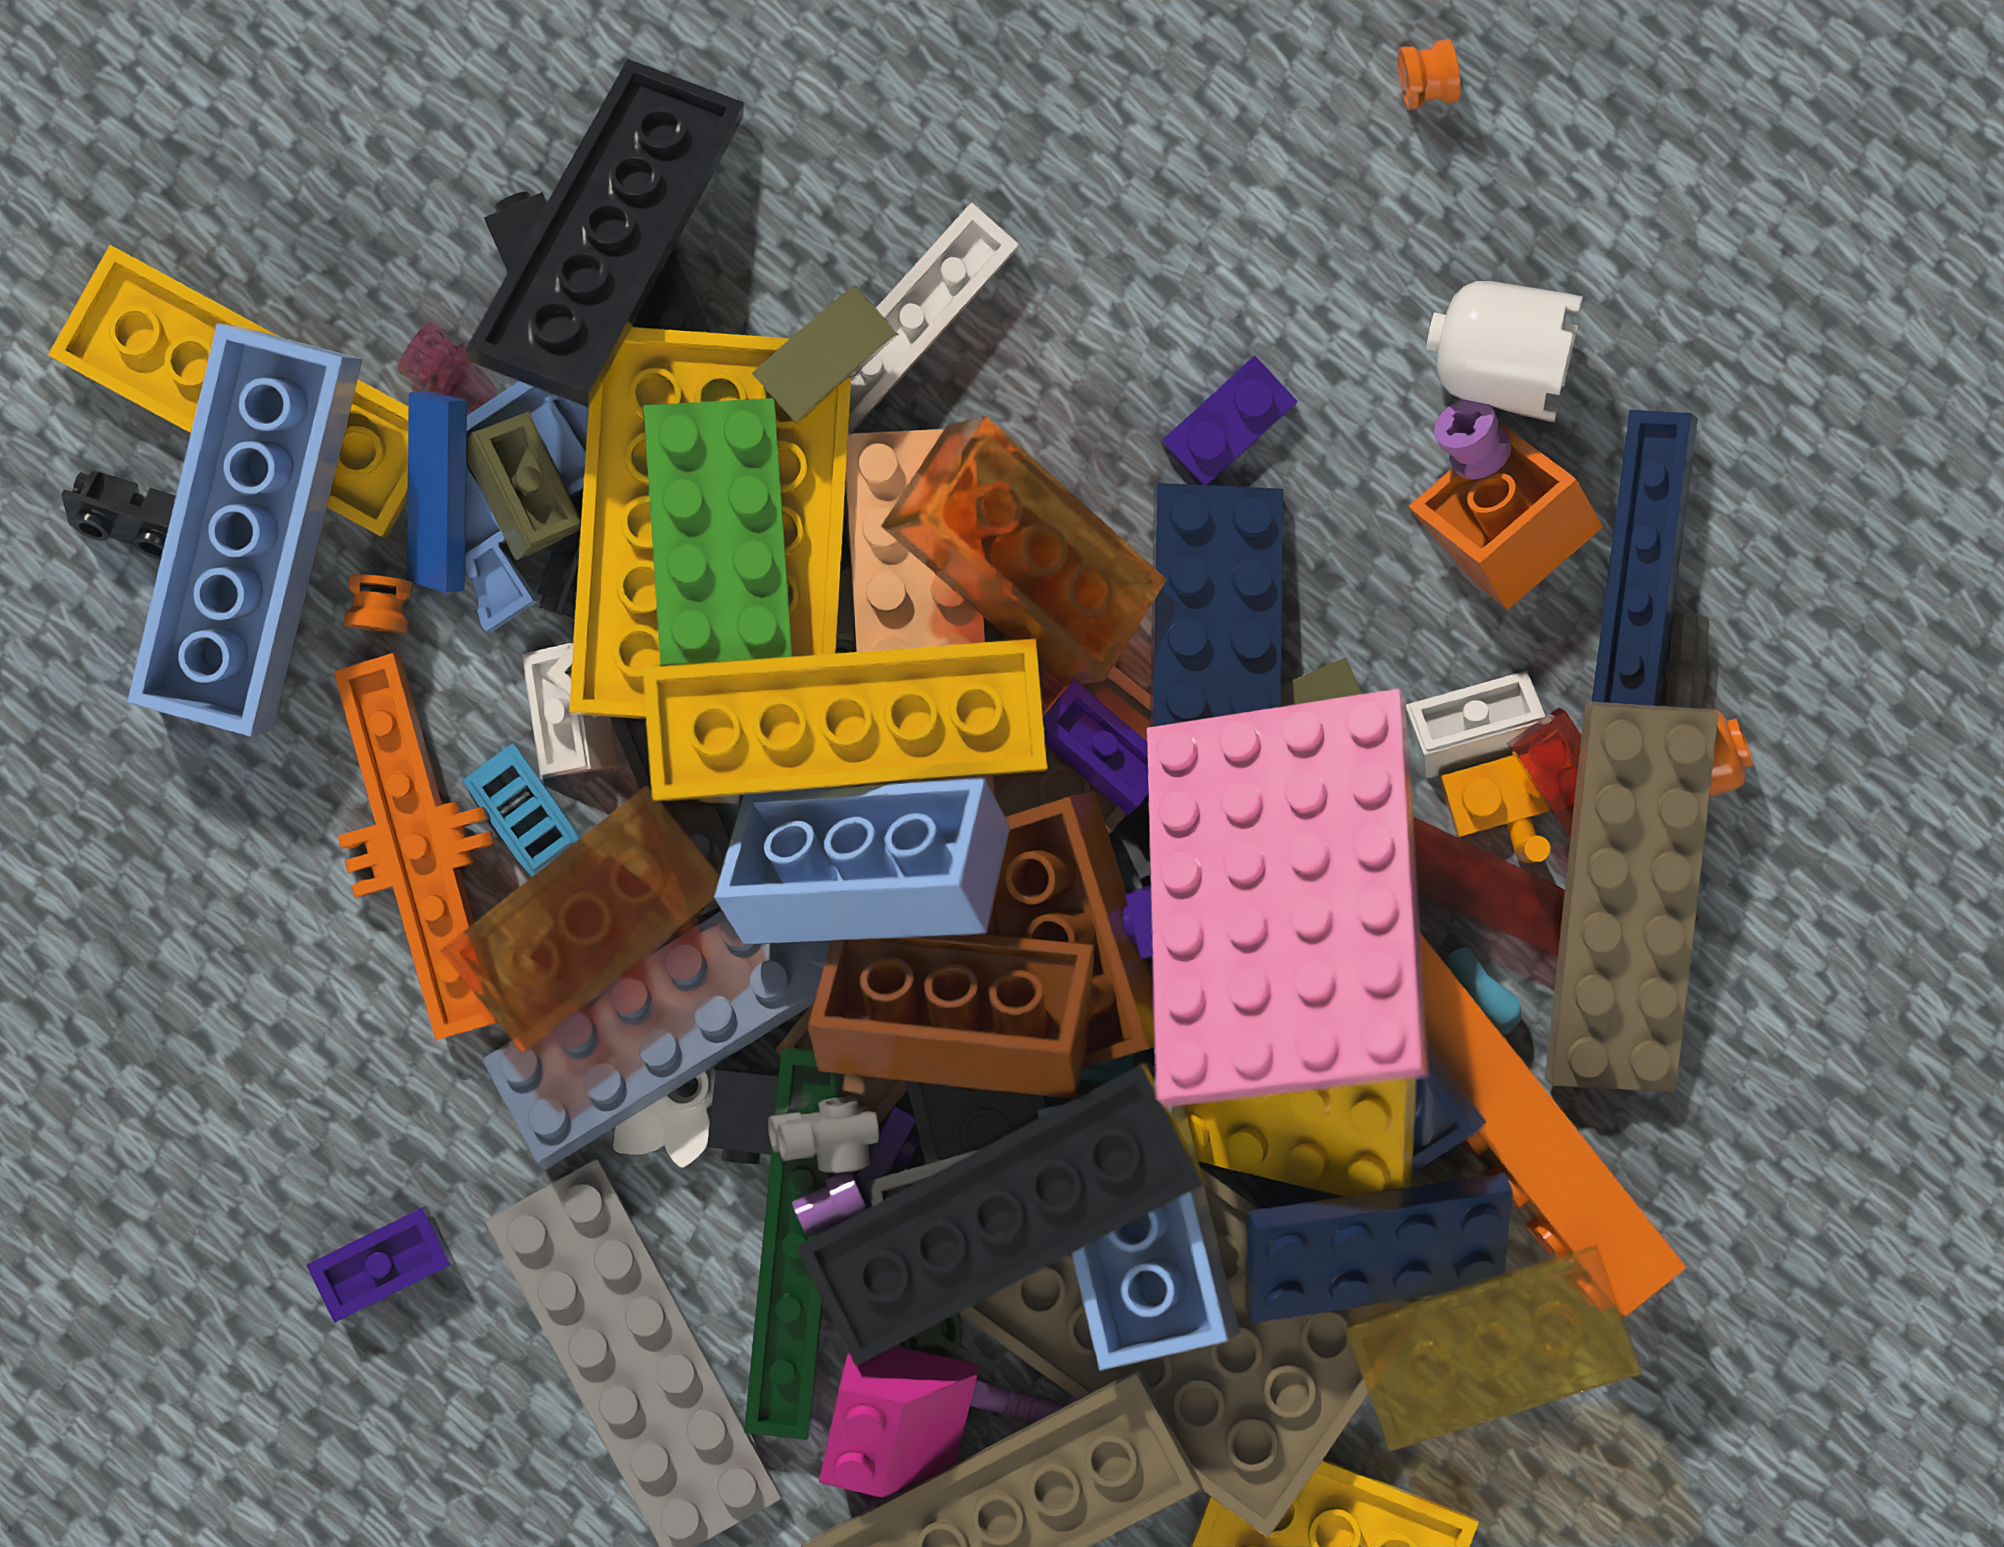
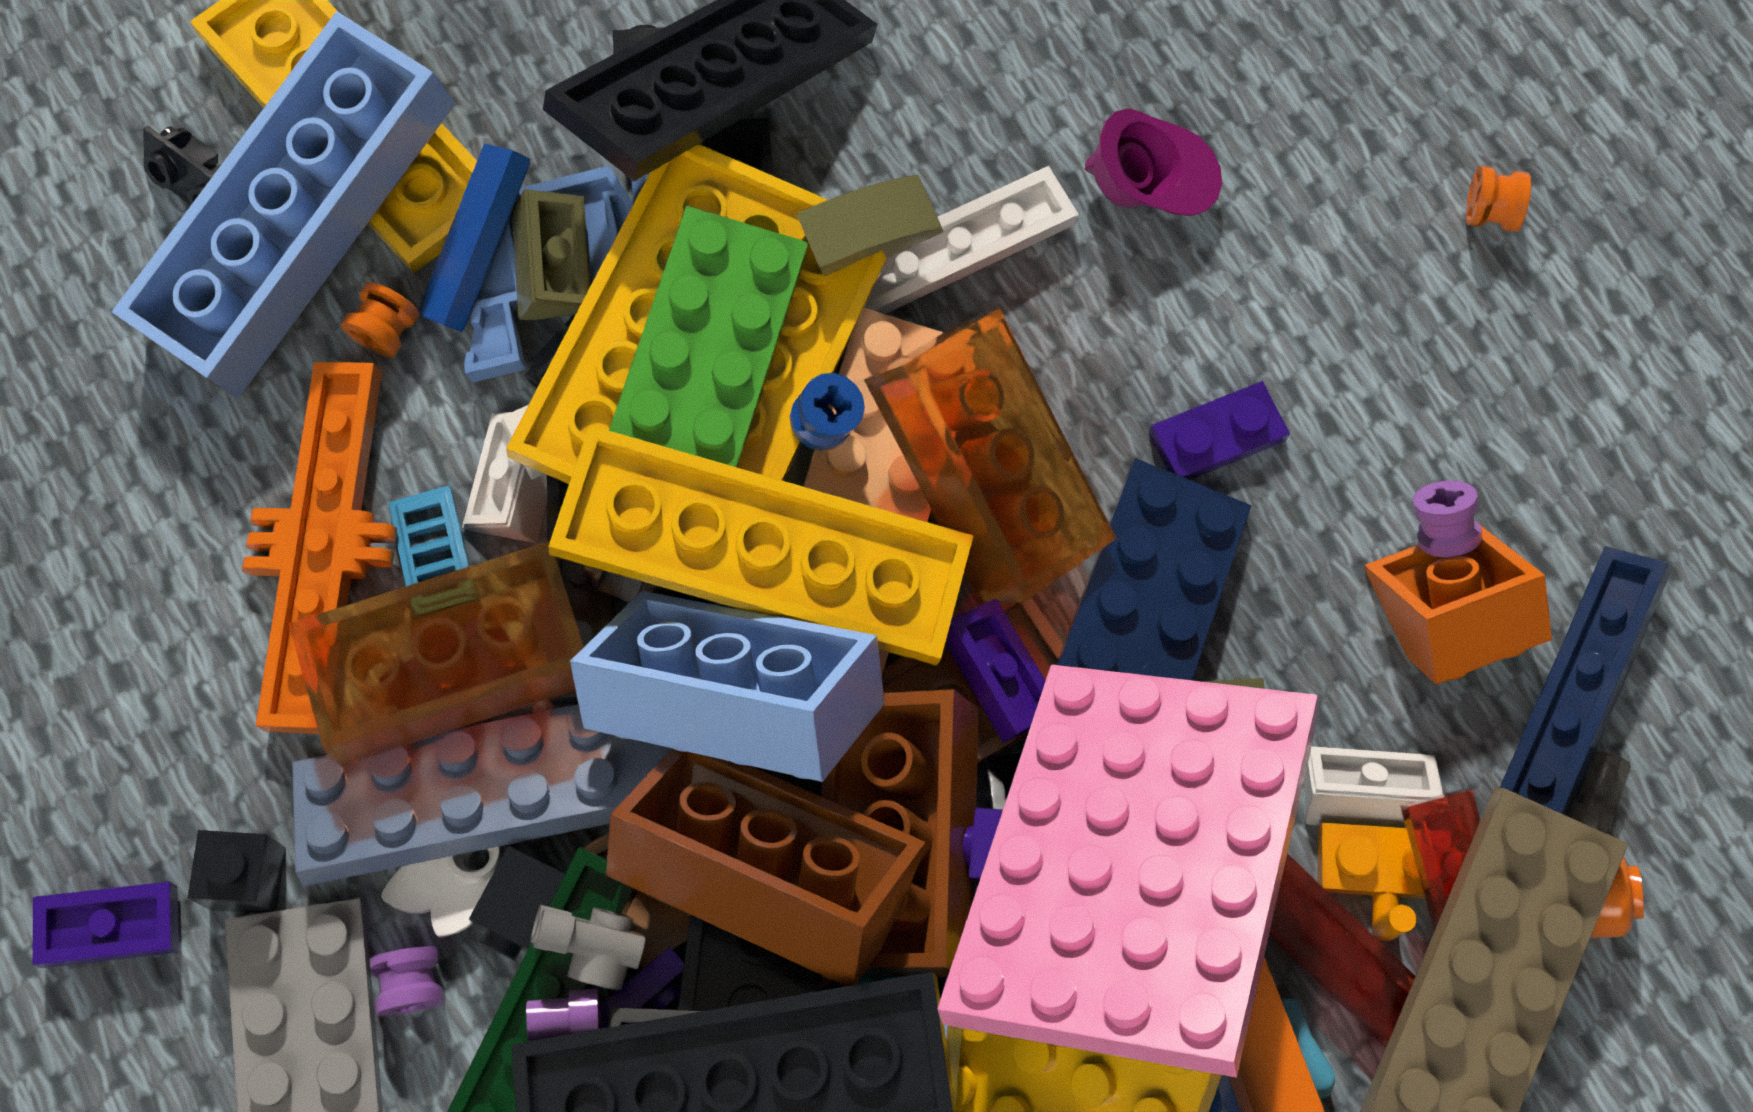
camera: 20 degrees right, 15 degrees down
(435, 360) = (520, 130): clear pink wheel -> none
(479, 1178) = (236, 871): none -> black brick
(671, 1216) = (407, 981): none -> medium lavender wheel
(842, 571) = (818, 425): none -> blue wheel
(1080, 166) = (1154, 165): none -> magenta piece
(1505, 346) = (1506, 443): white cylinder -> none

